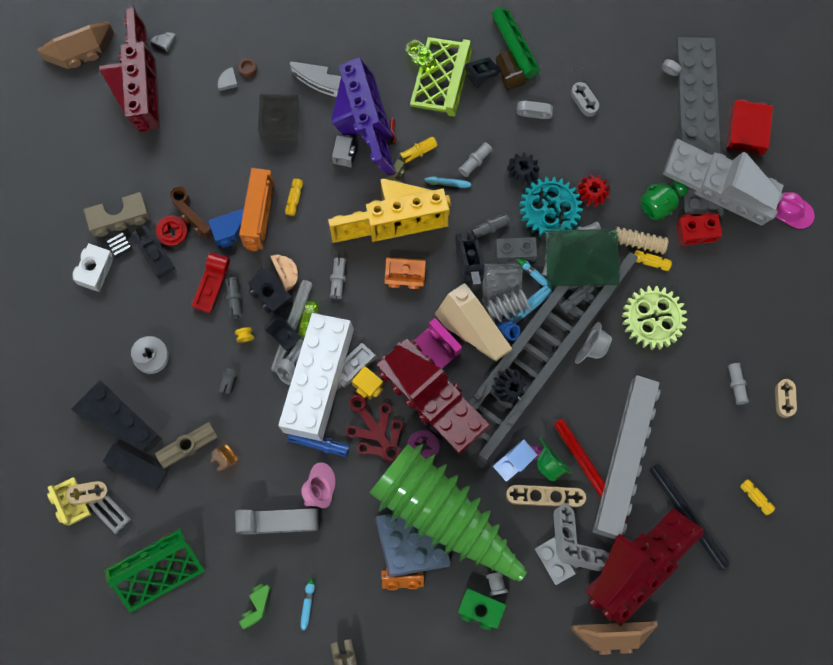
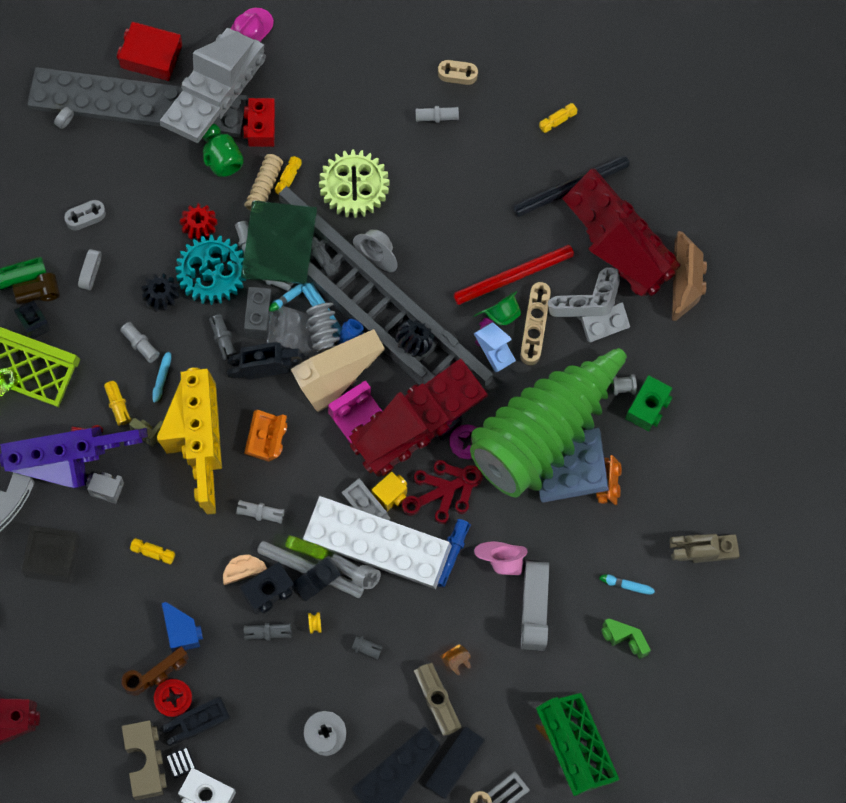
camera: 85 degrees left, 5 degrees down
(211, 283) = (246, 655): red plate -> none
(257, 209) = (163, 587): orange door -> none
(626, 458) = (504, 233): light grey brick -> none

